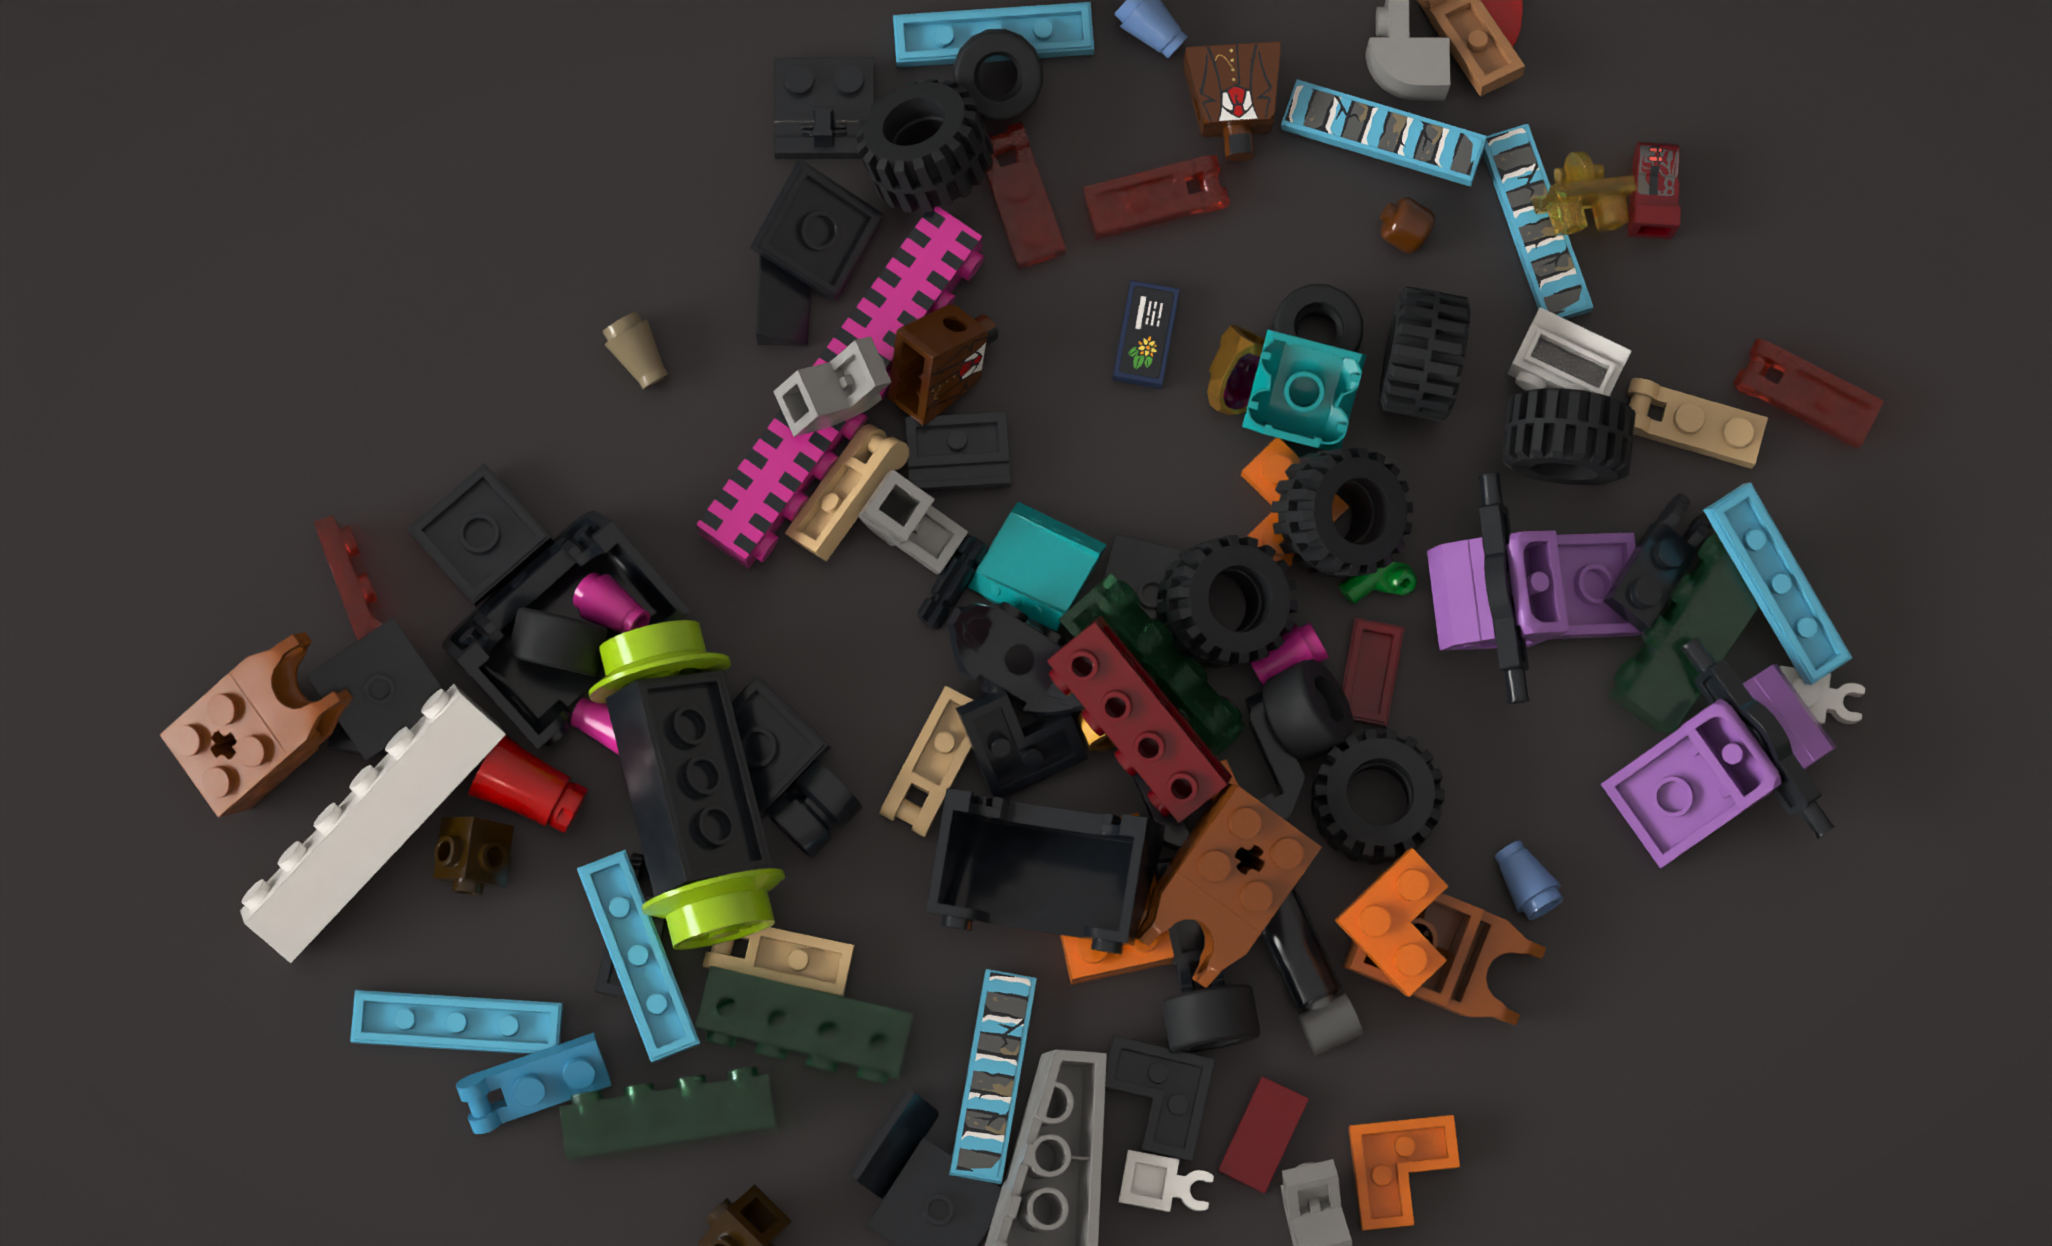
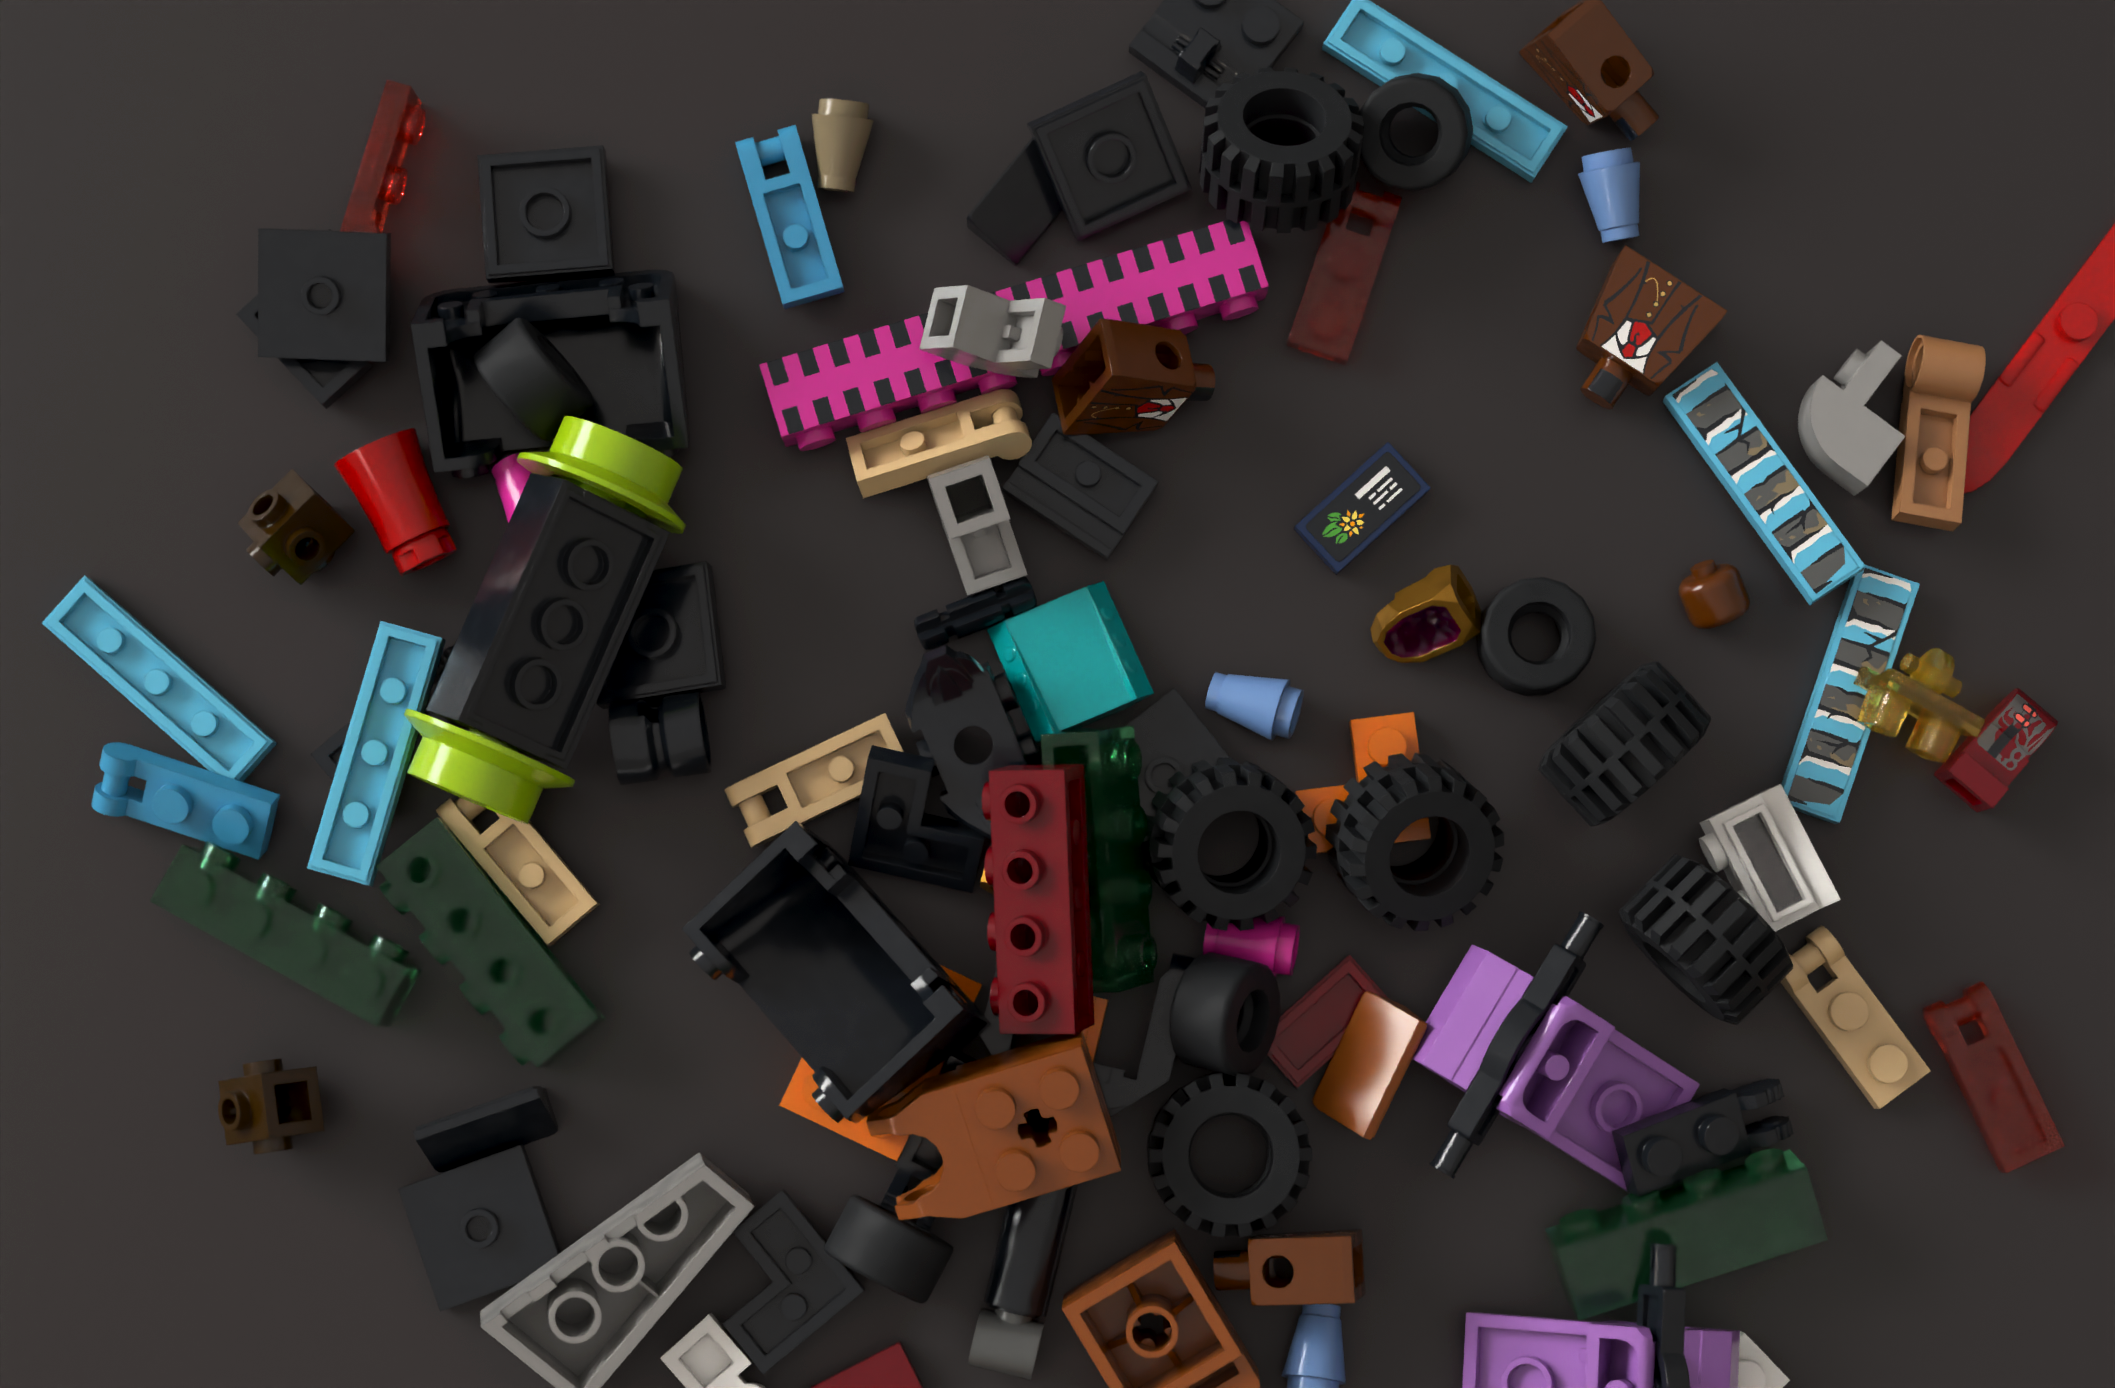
camera: 40 degrees right, 5 degrees up
(253, 728) = (169, 242): brick -> none
(371, 822) = (217, 421): white brick -> none
(609, 604) = (614, 381): dark pink cone -> none
(641, 421) = (790, 219): none -> dark azure plate
(993, 1076) = (633, 1138): tile -> none
(1154, 196) = (1479, 374): clear red plate -> none
(1174, 504) = (1257, 703): none -> medium blue cone
(1304, 391) = (1471, 688): teal slope -> none
(1383, 917) = (1128, 1289): orange plate -> none
(1394, 579) = (1421, 948): green arm -> none
(1421, 674) = (1369, 1064): none -> dark orange slope
(1494, 821) = (1324, 1263): none -> reddish brown torso
(1777, 583) = (1803, 1252): medium azure tile -> none

